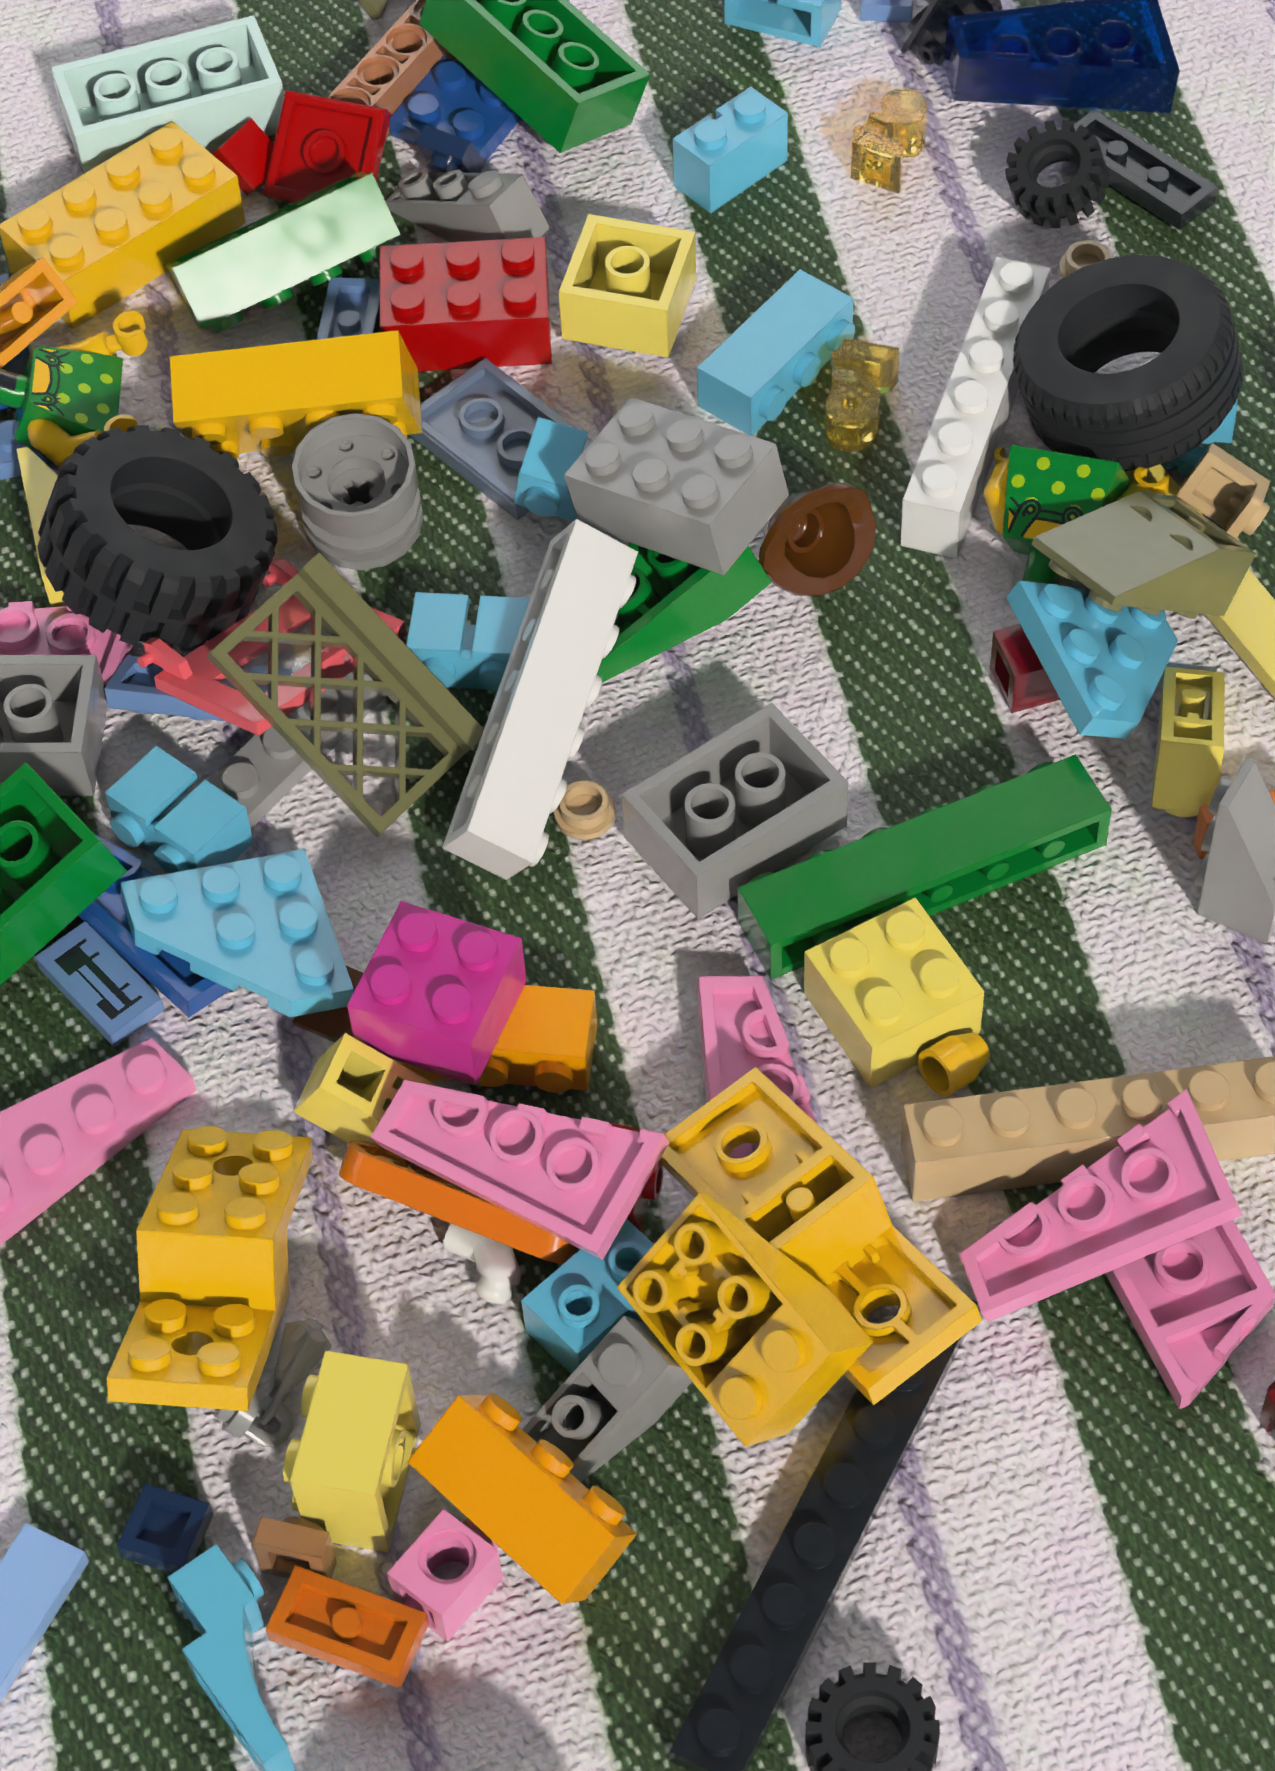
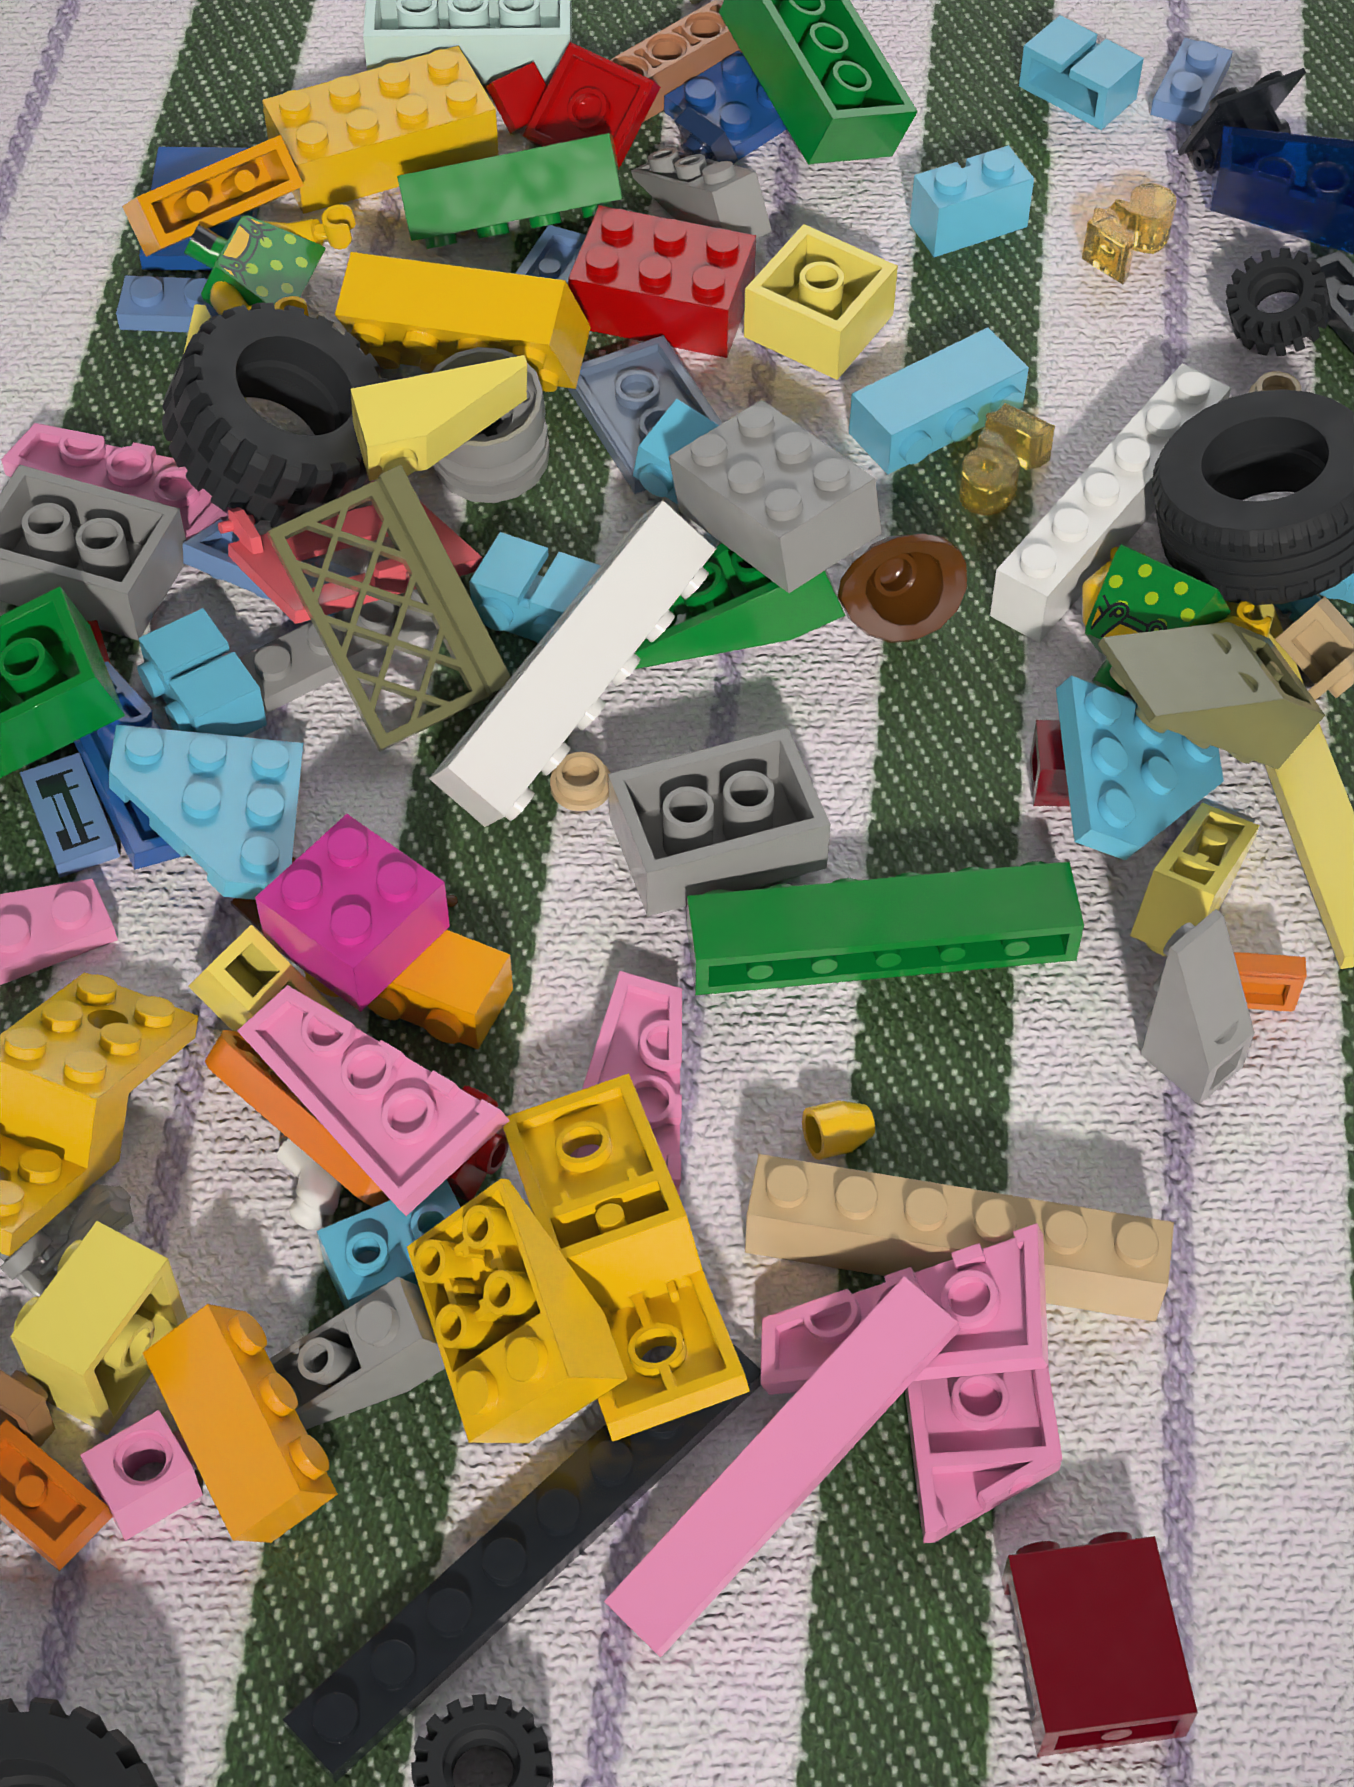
camera: 15 degrees right, 0 degrees up
(312, 500) = (433, 413): none -> light yellow slope
(891, 990) = (800, 1039): light yellow brick -> none
(1035, 1379) = (782, 1466): none -> bright pink tile

